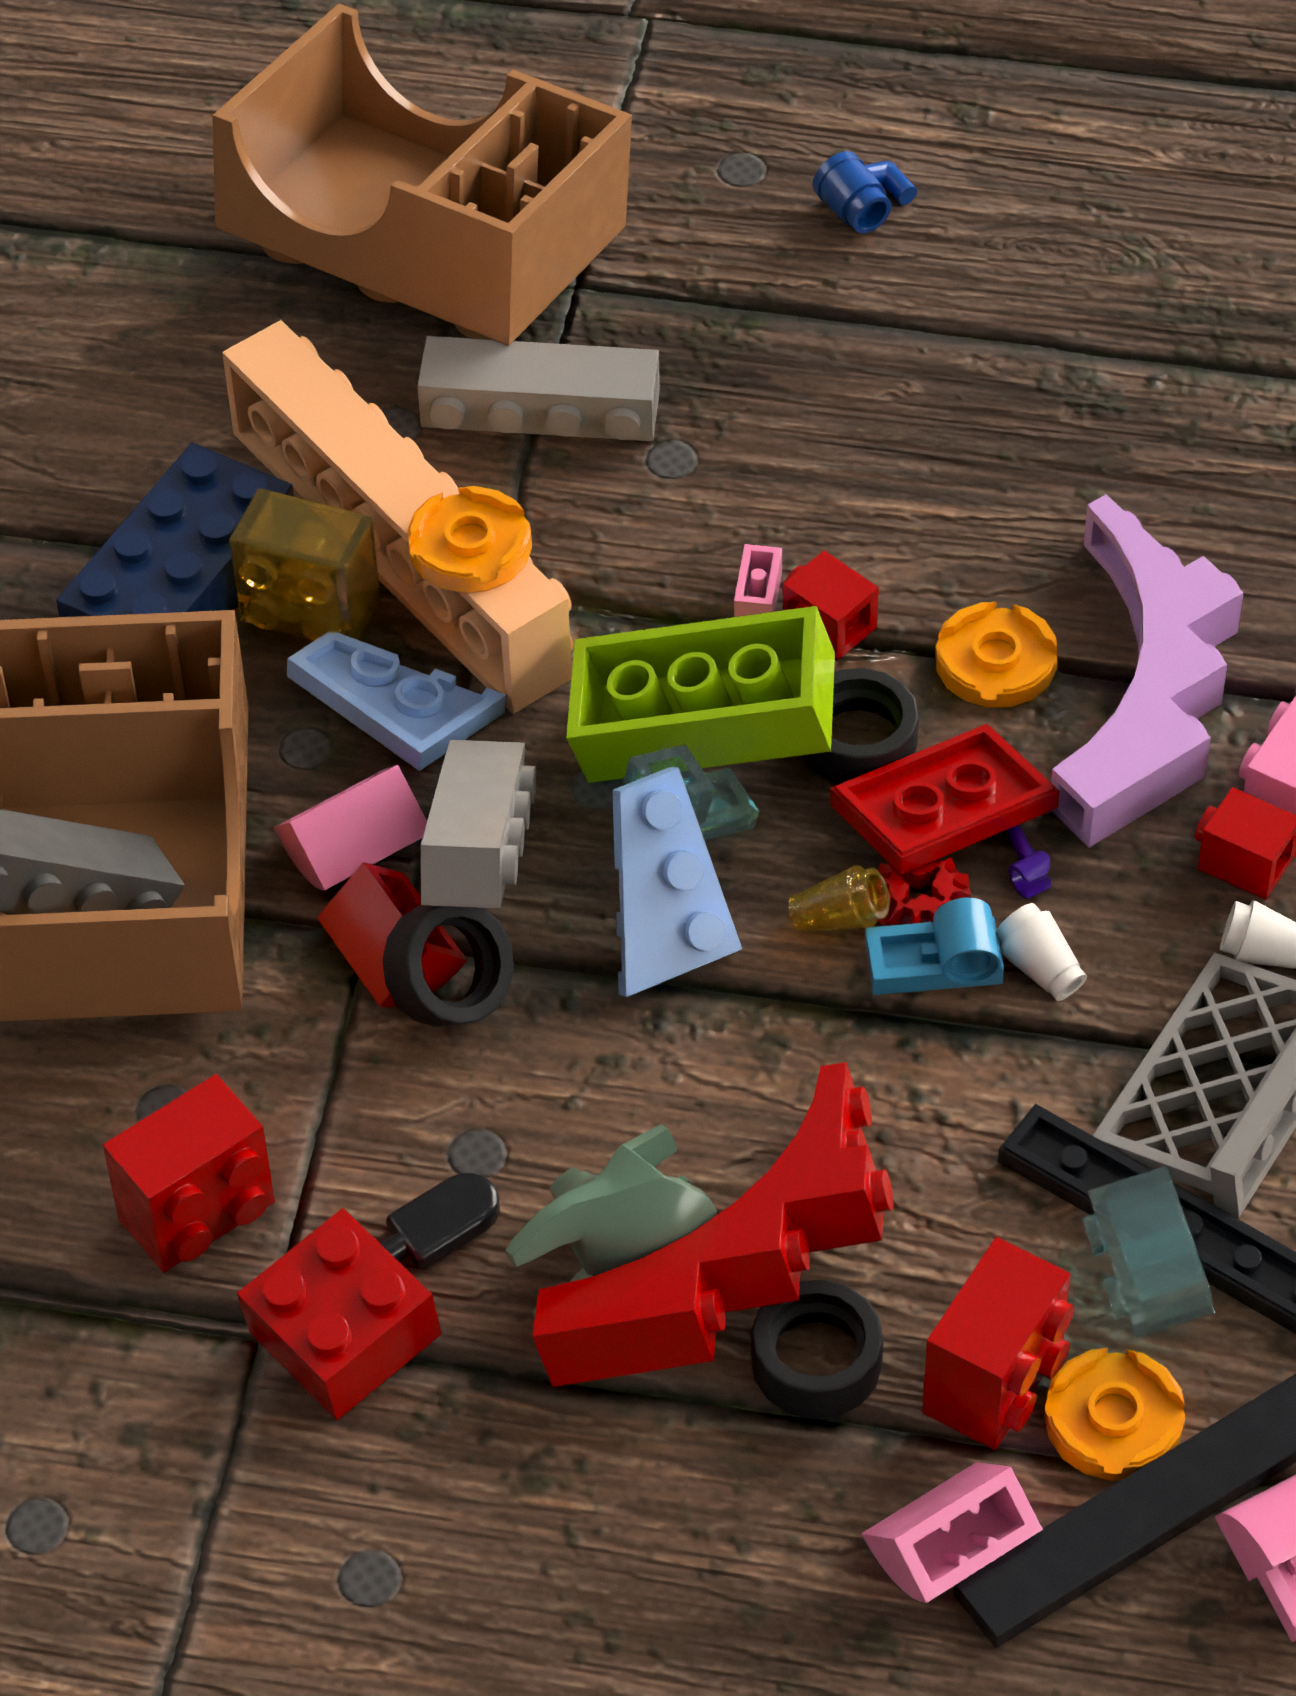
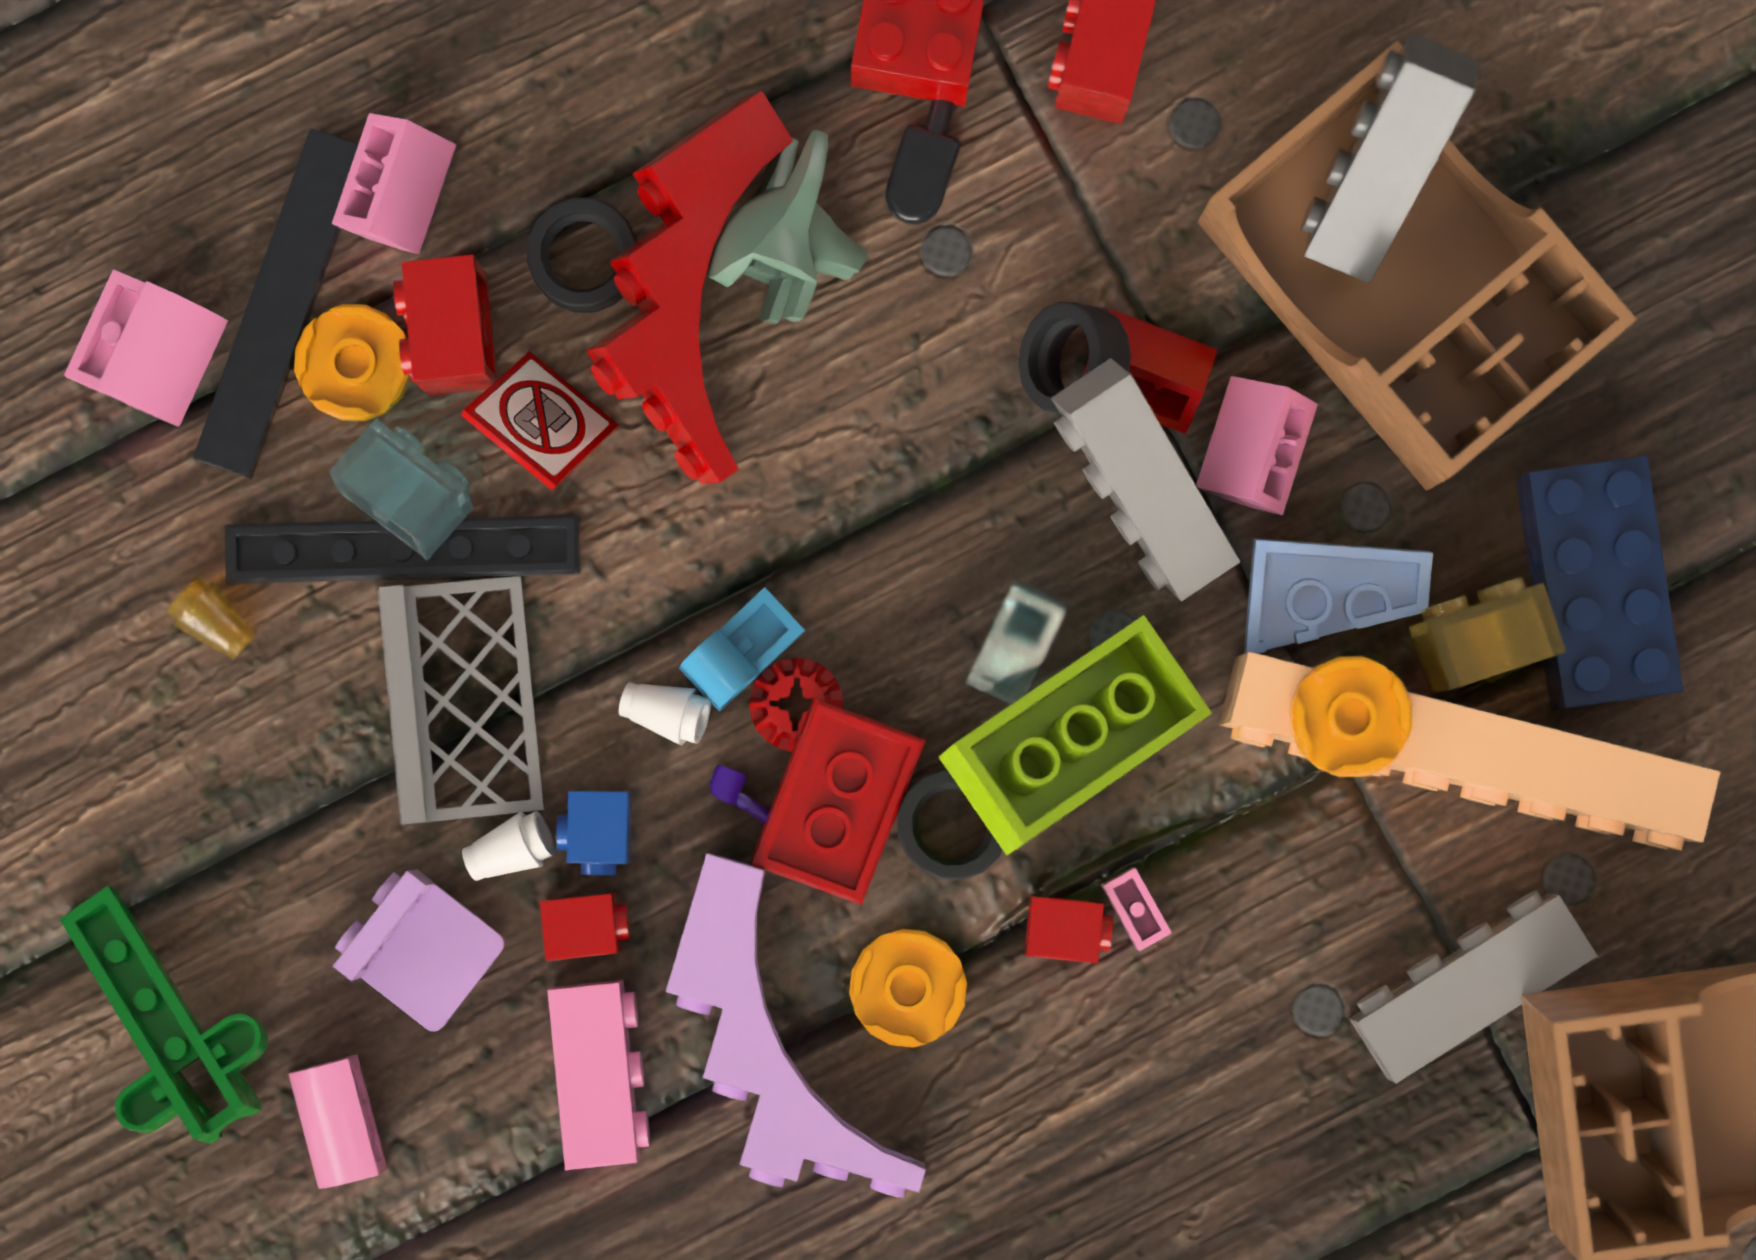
camera: 140 degrees right, 35 degrees up
(668, 887) = (966, 539): light blue wing -> none
(843, 901) = (837, 639): clear yellow cone -> none
(961, 1216) = (540, 420): none -> piece
(1175, 902) = (596, 831): none -> blue brick

